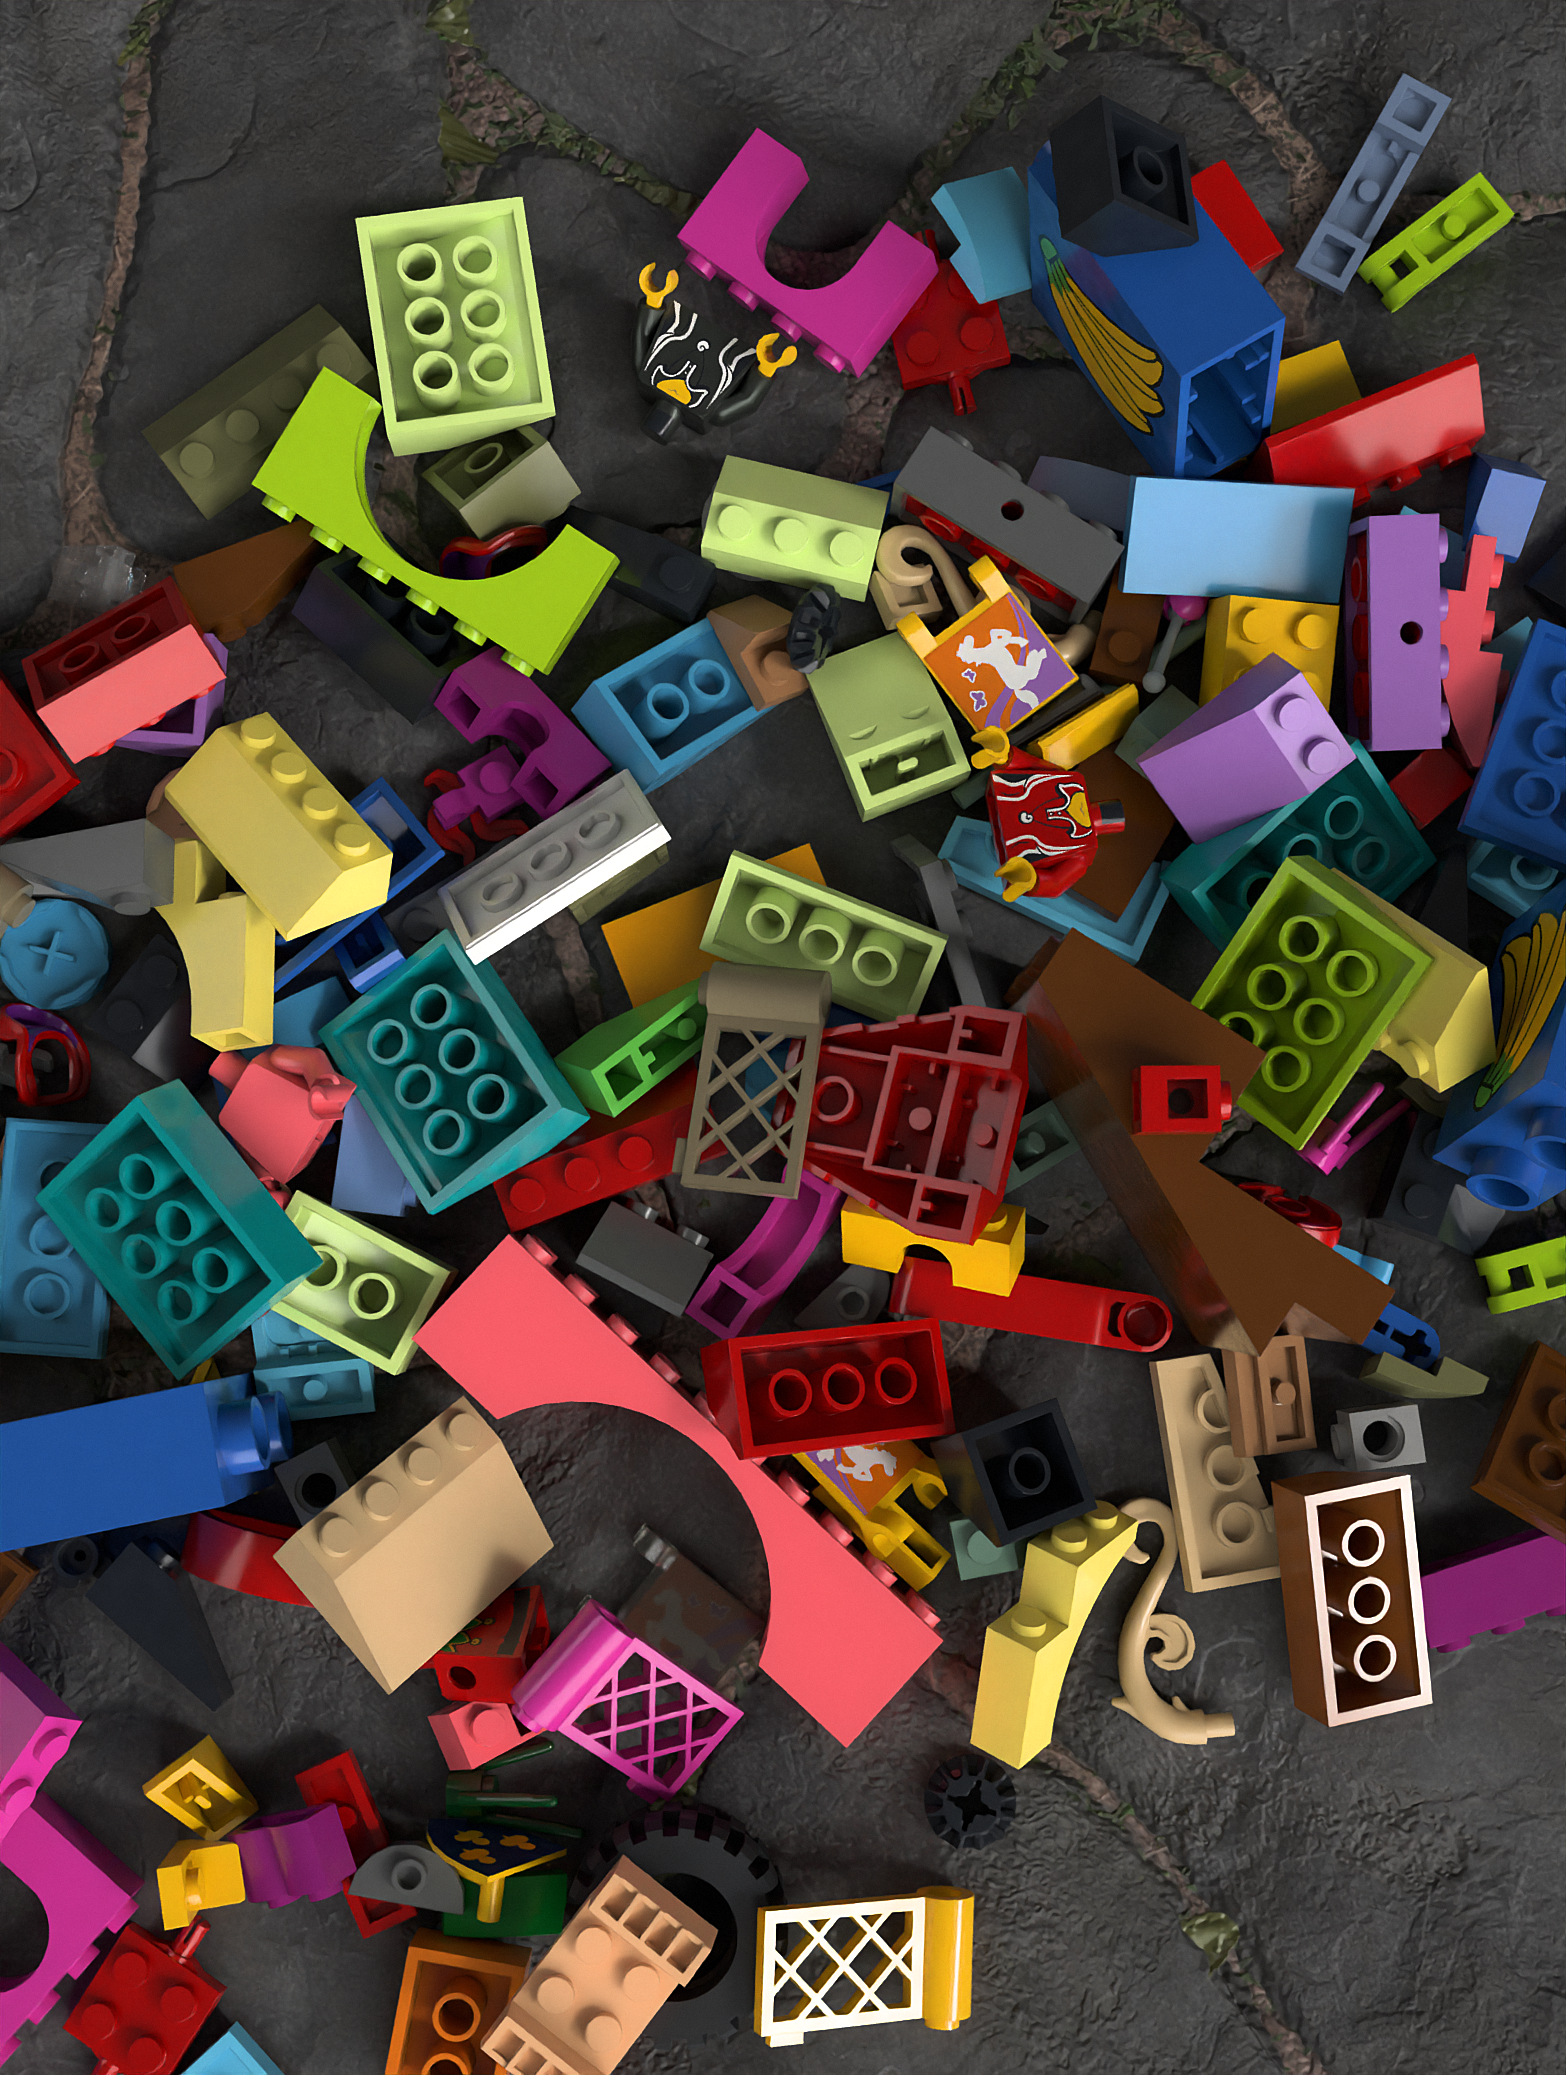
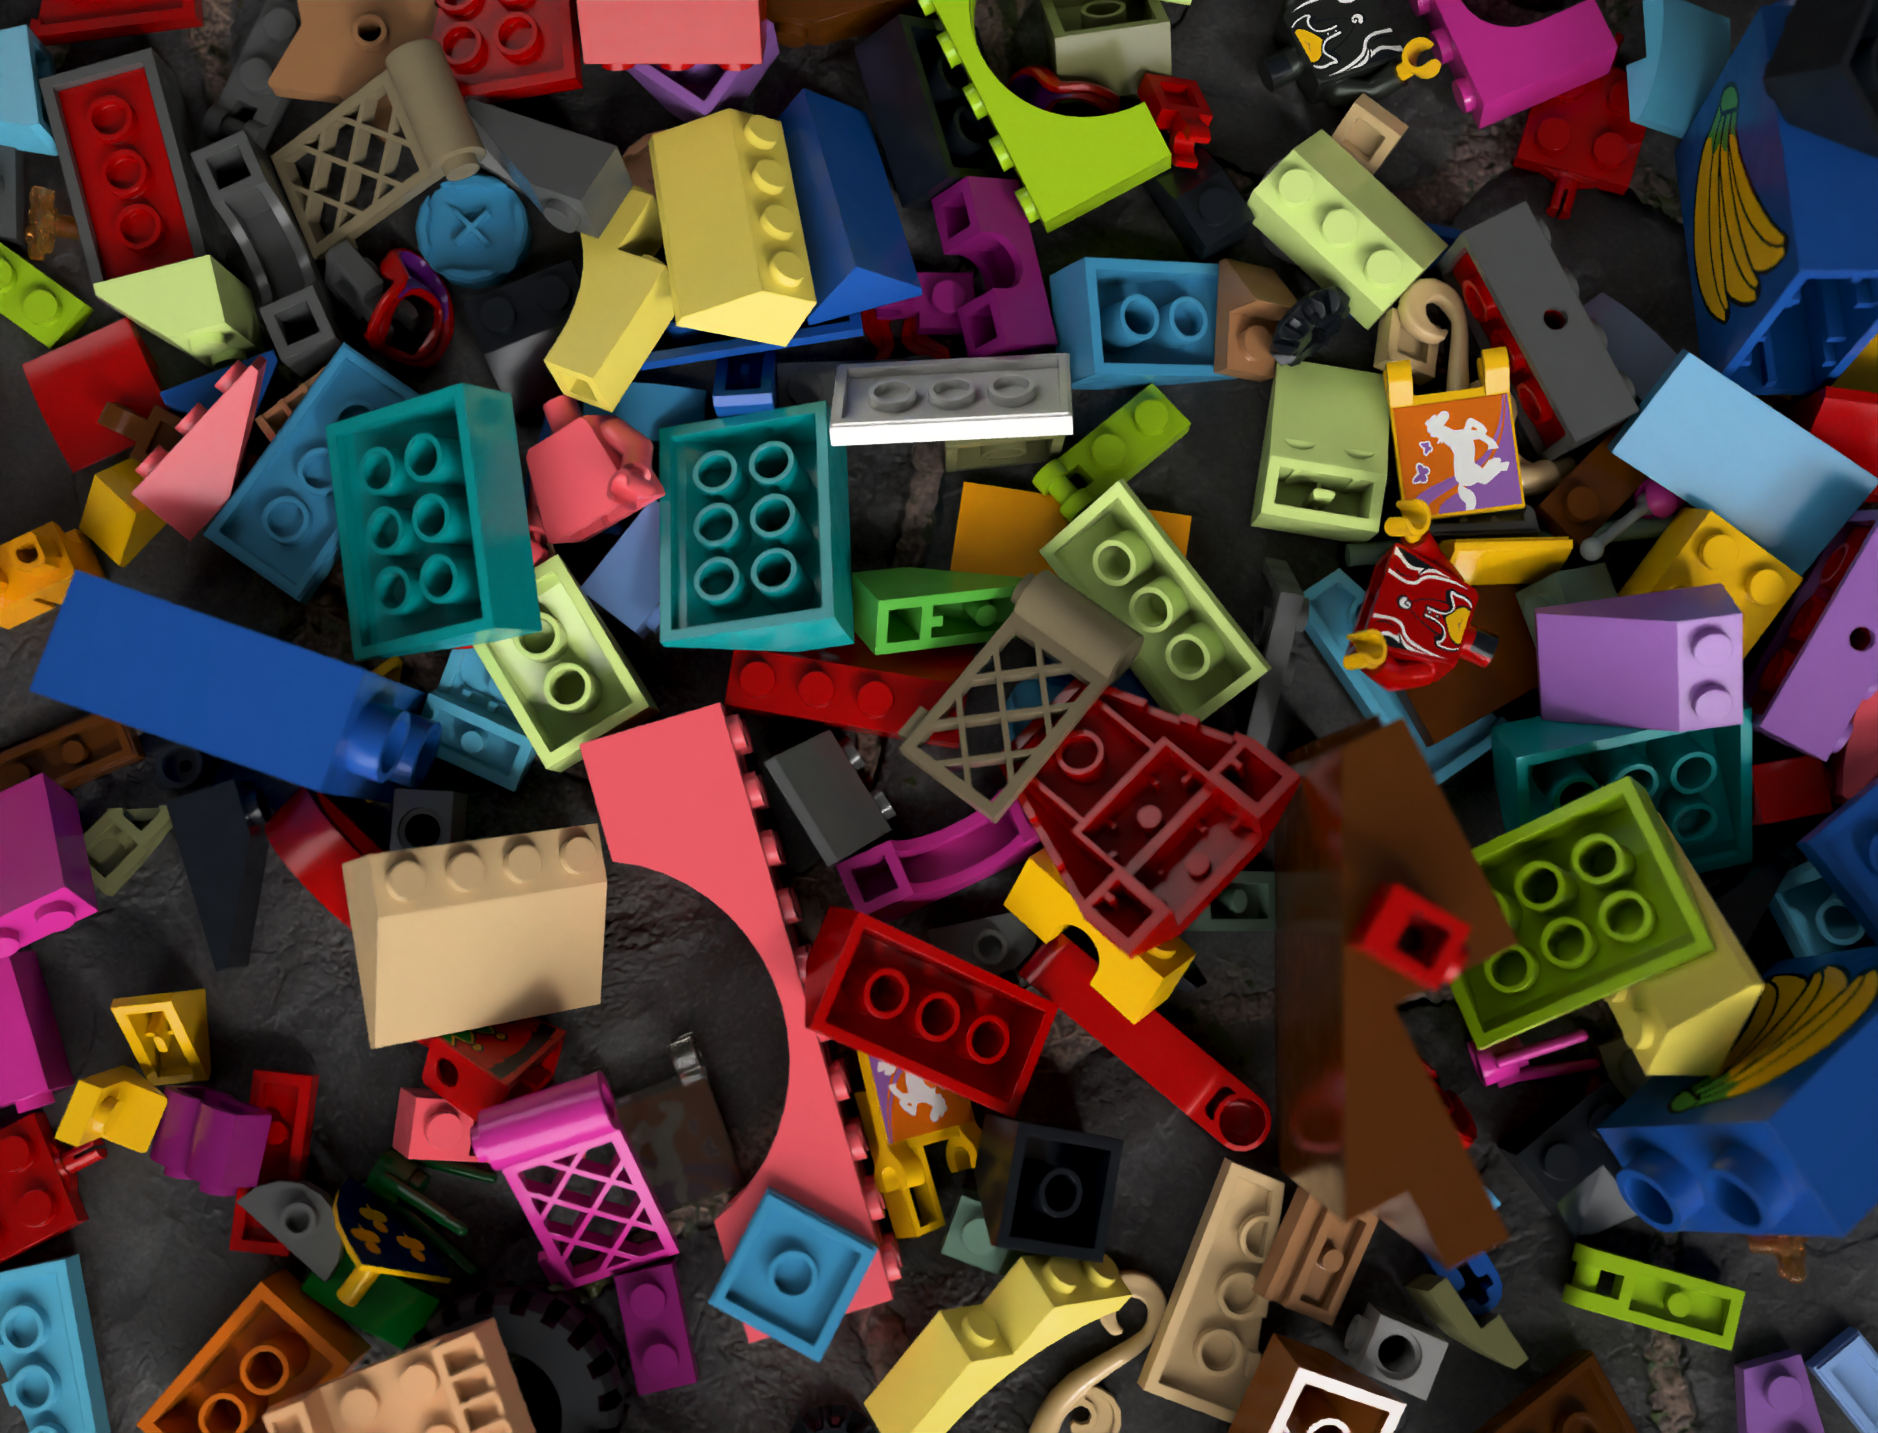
camera: 35 degrees right, 0 degrees up
(64, 1652) = (122, 843): none -> olive slope
(366, 754) = (845, 209): none -> blue slope
(597, 508) = (1180, 111): none -> red plate
(712, 827) = (1113, 451): none -> lime plate
(761, 1786) = (656, 1327): none -> magenta plate
(768, 435) = (1369, 133): none -> tan plate
(849, 1668) = (794, 1274): none -> dark azure tile

